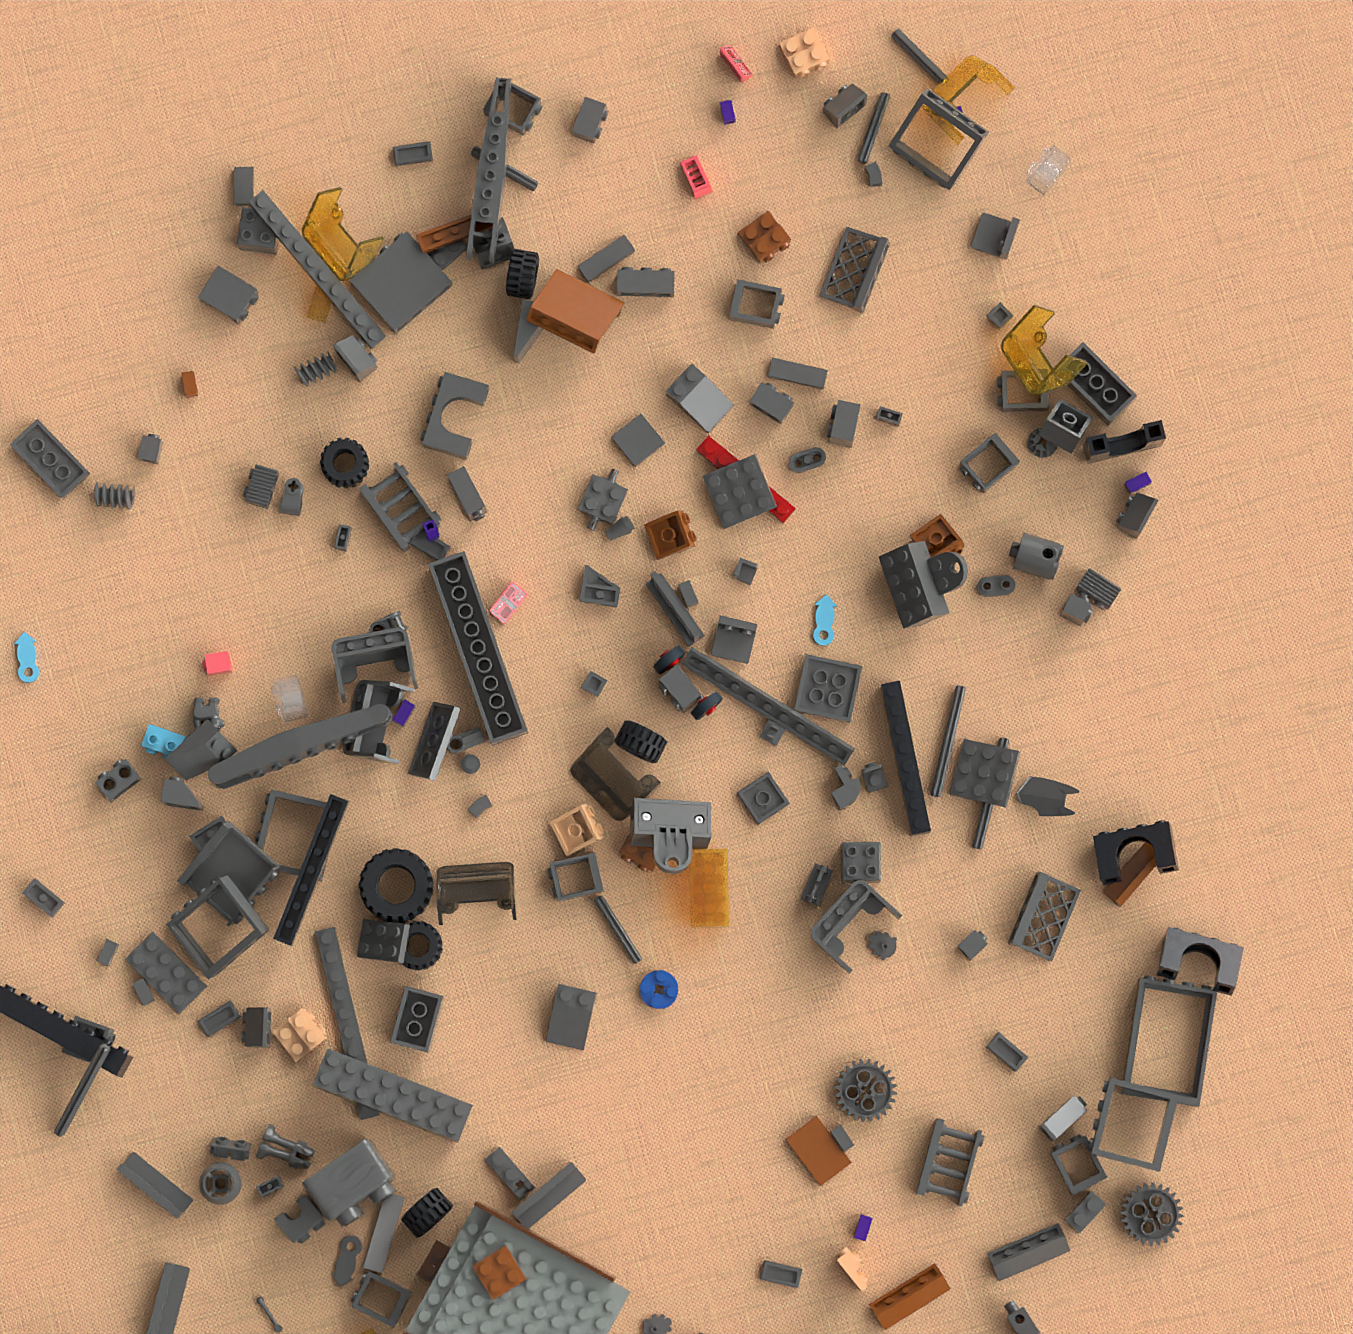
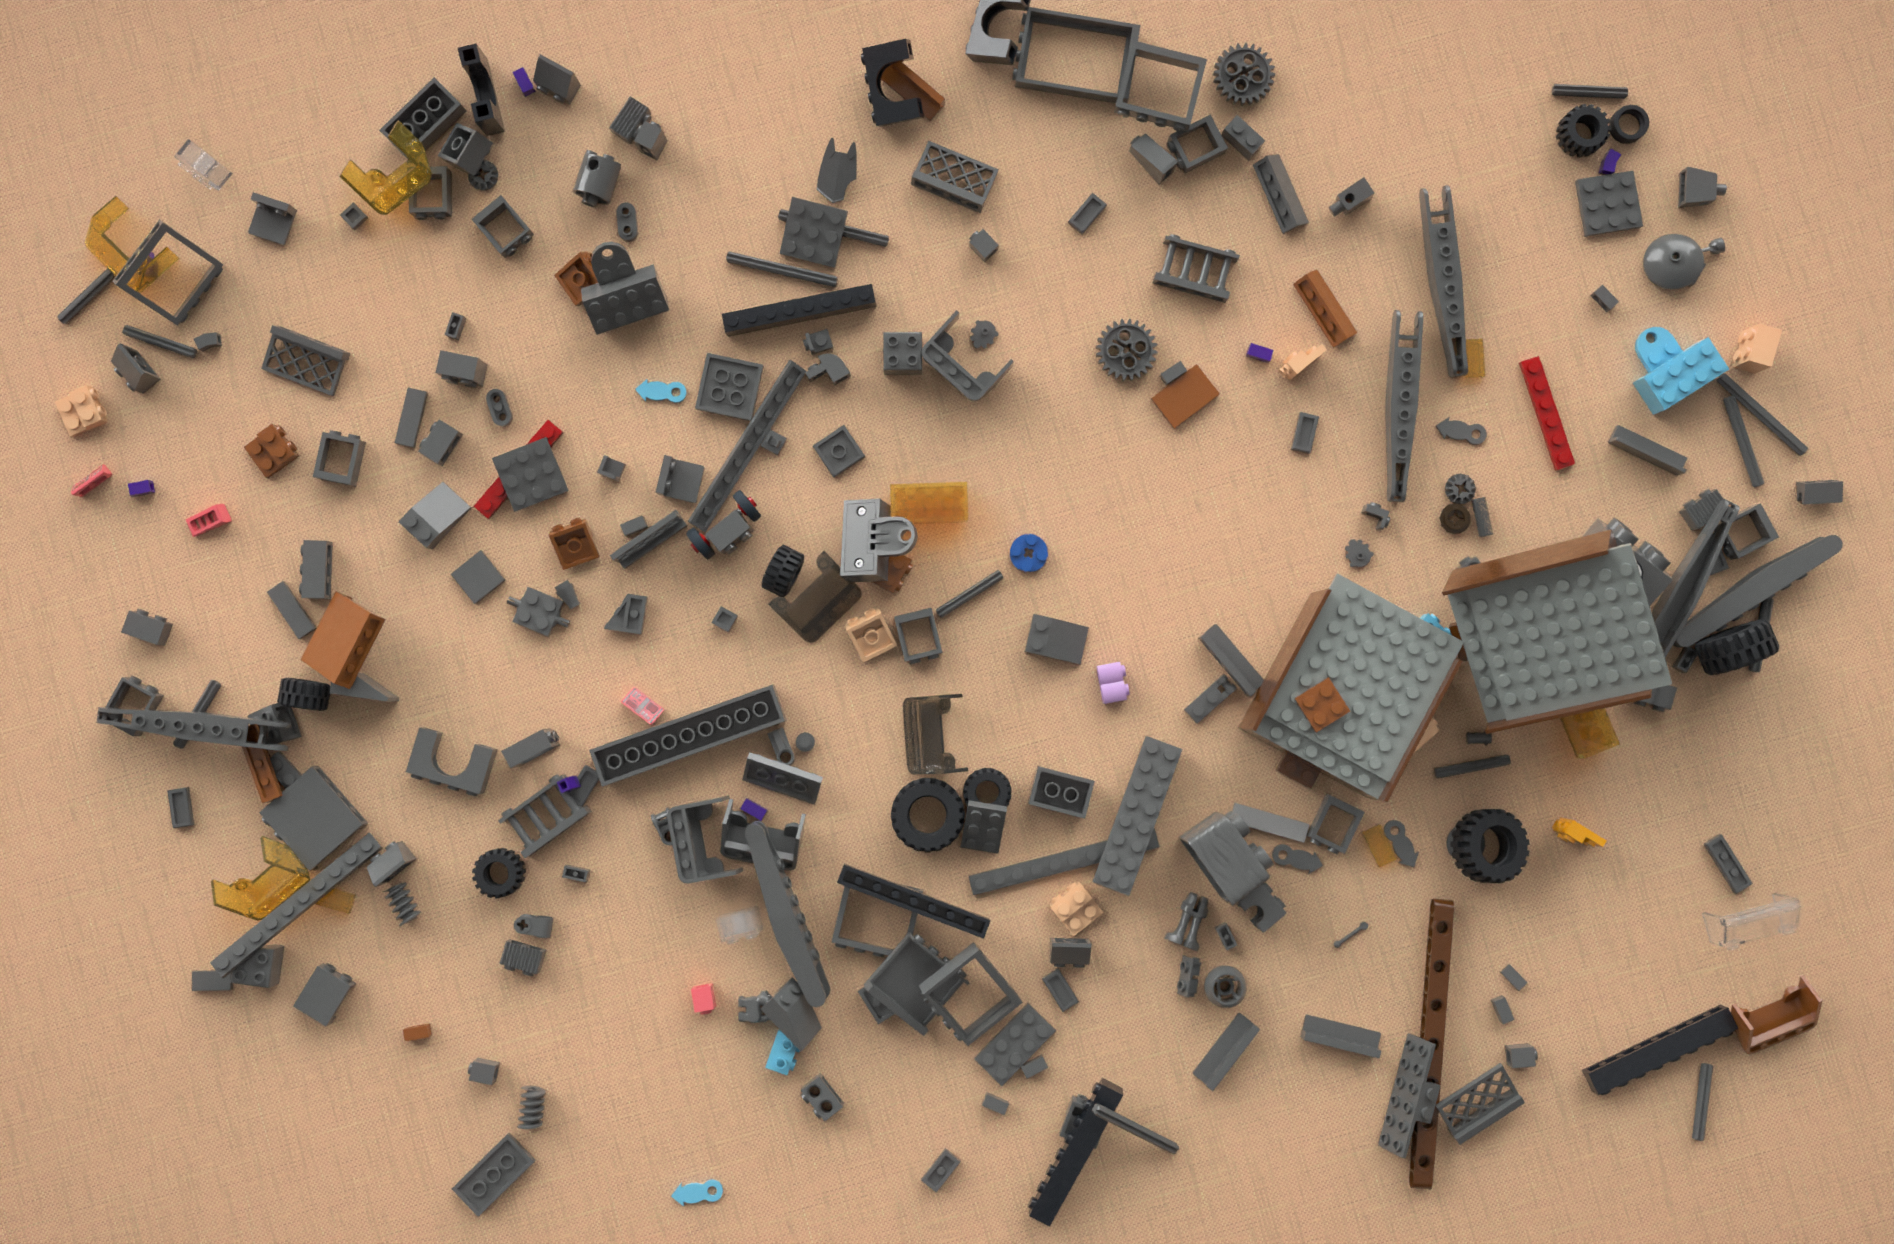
camera: 95 degrees left, 5 degrees up
(178, 794) = (835, 1037): dark grey slope -> none
(426, 1212) = (1252, 779): black tyre -> none
(480, 806) = (847, 732): dark grey piece -> none
(526, 1073) = (1112, 683): none -> lavender brick
(816, 884) = (924, 398): dark grey hinge -> none

